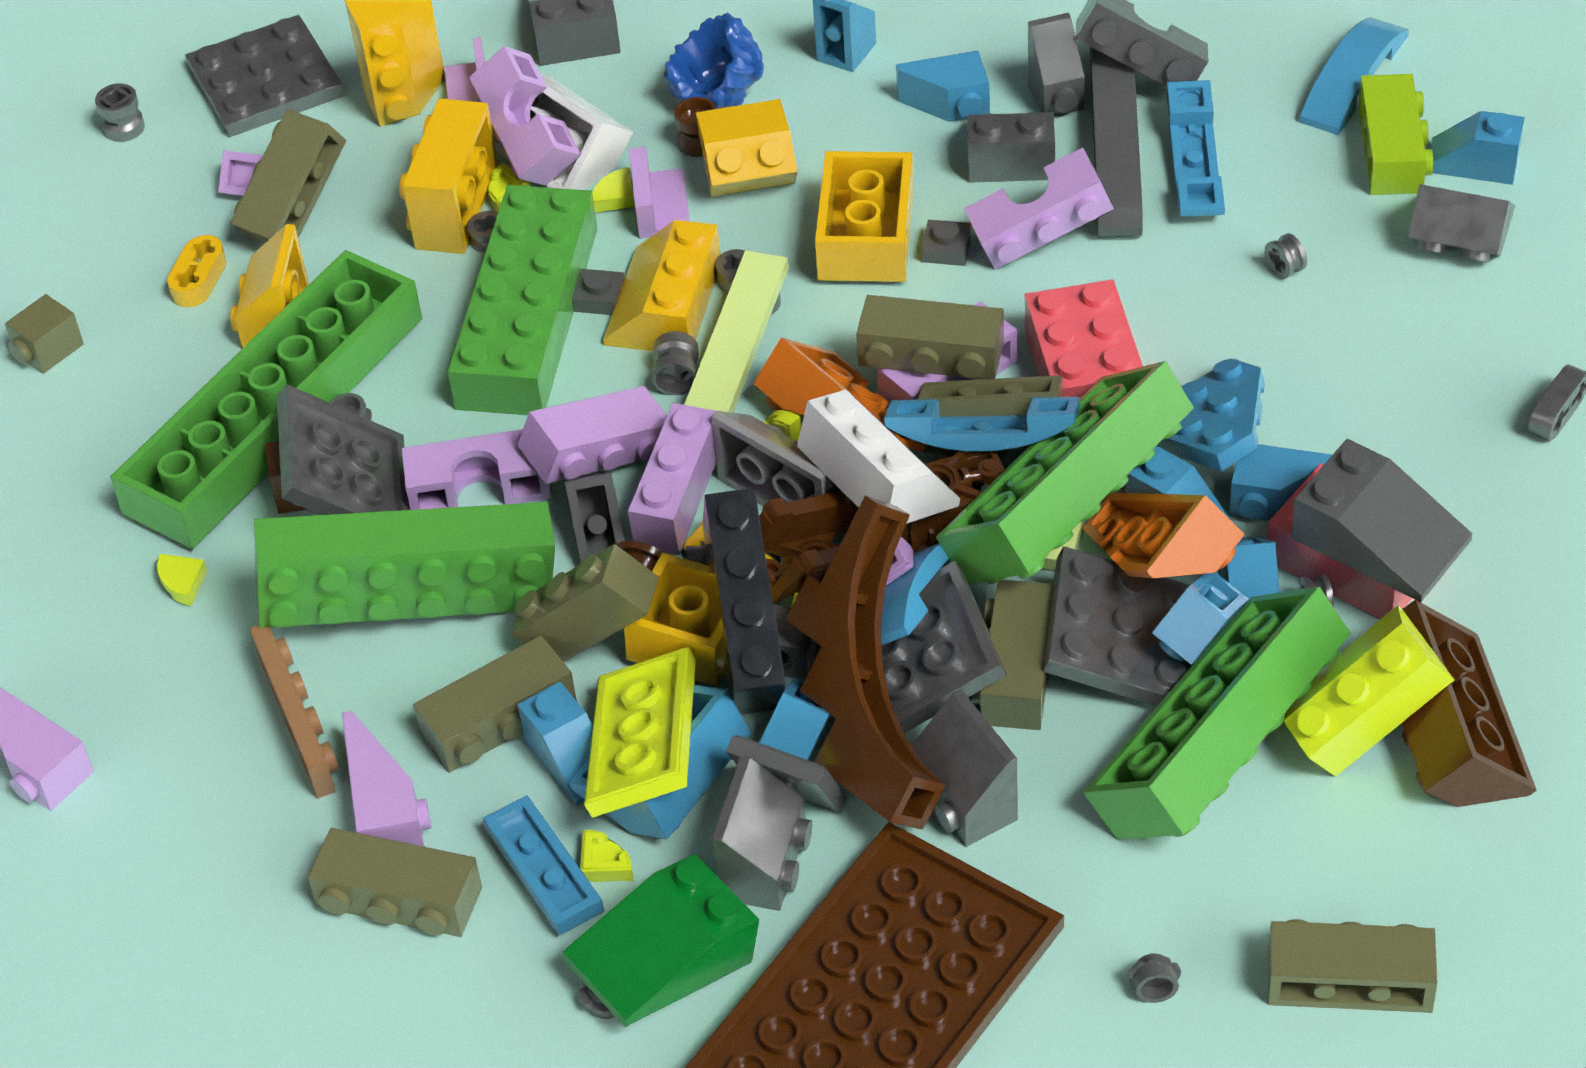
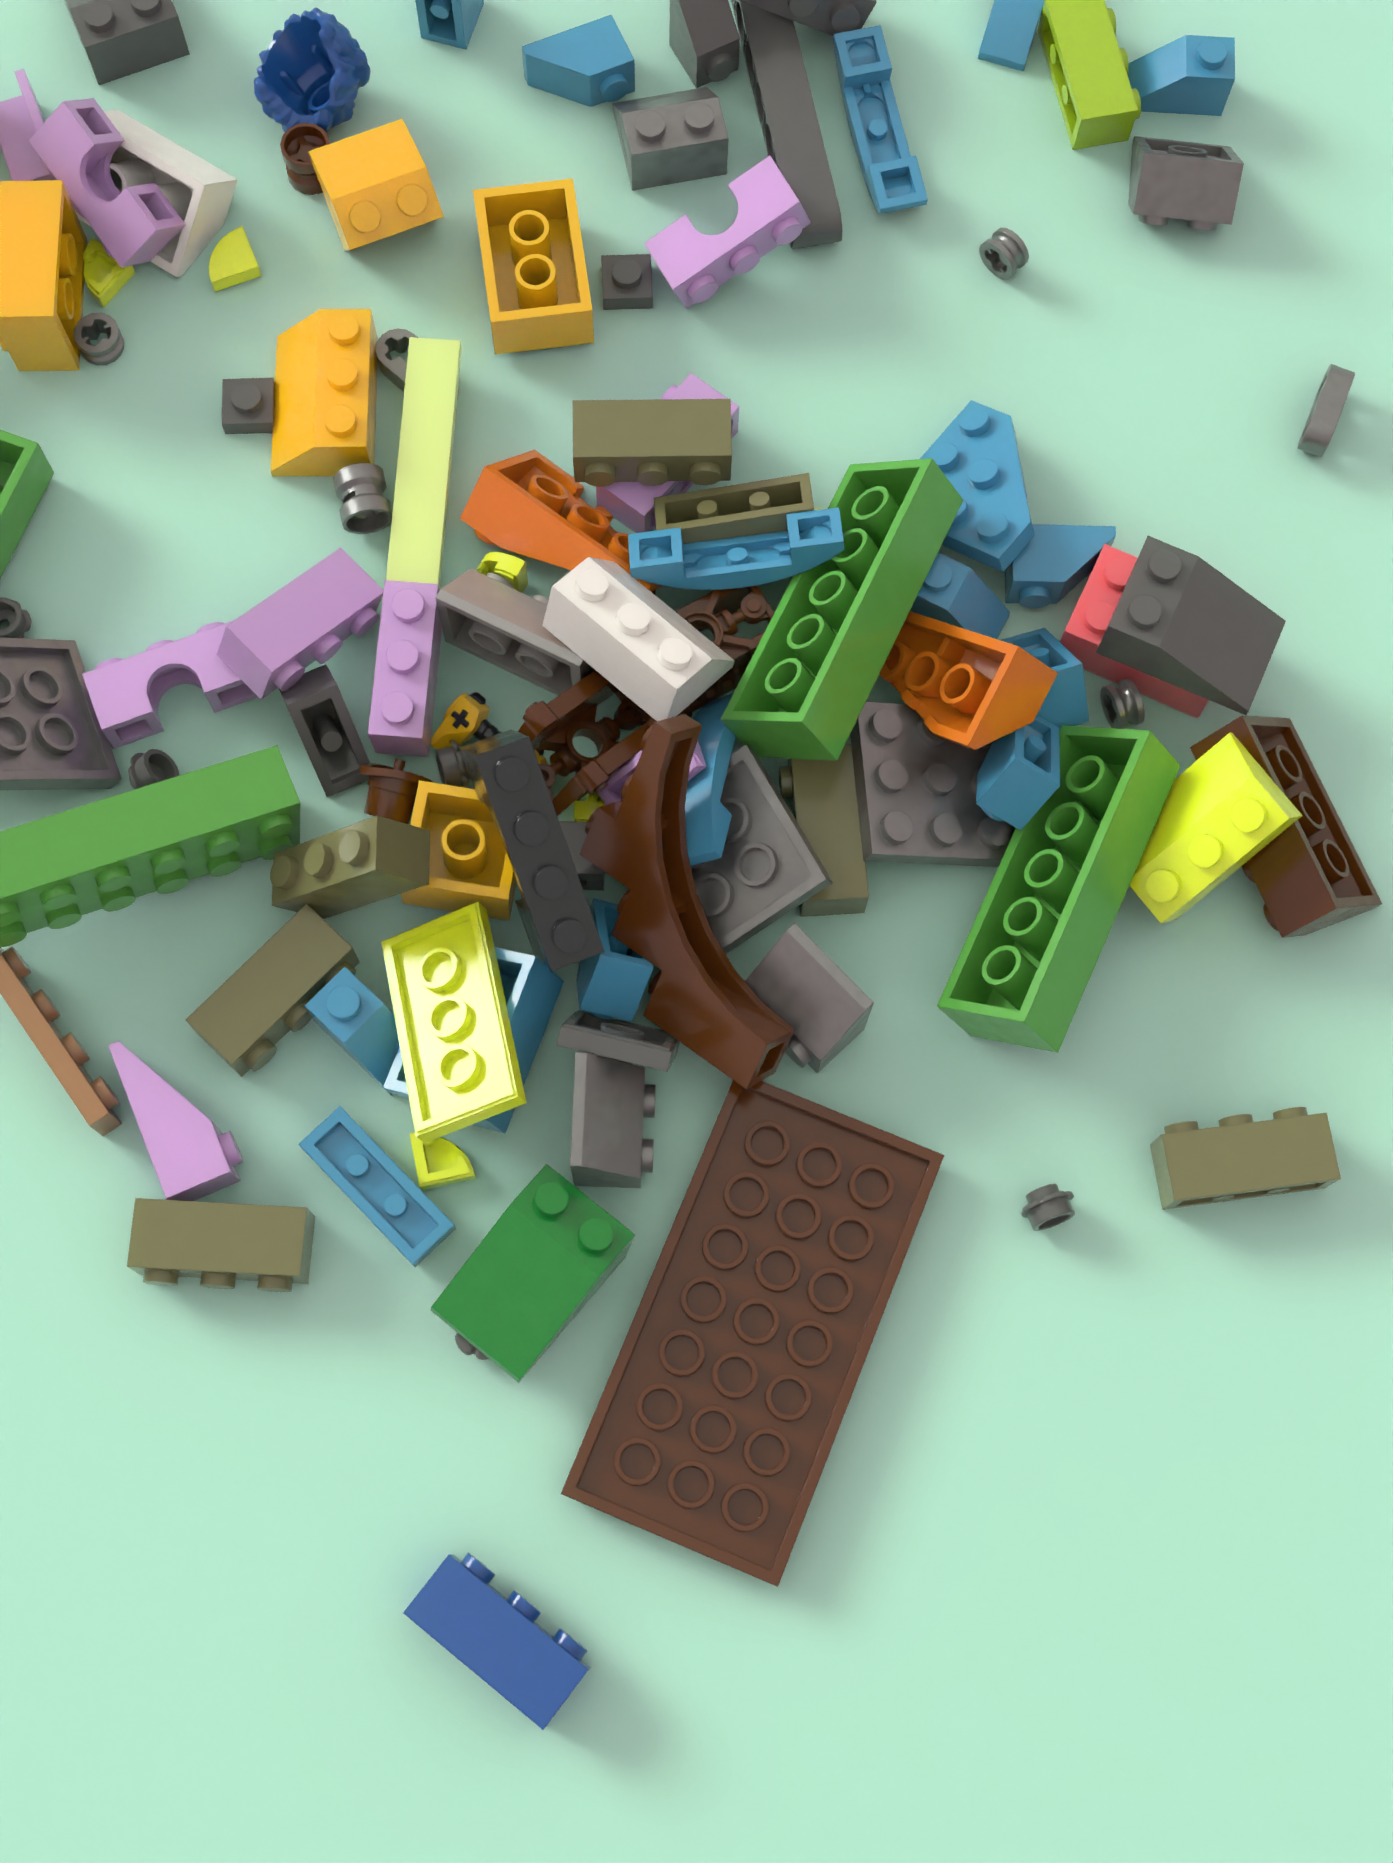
camera: 20 degrees left, 25 degrees up
(523, 301) = (167, 436): bright green brick -> none
(657, 195) = (287, 264): lavender panel -> none
(1079, 334) = (812, 411): coral brick -> none

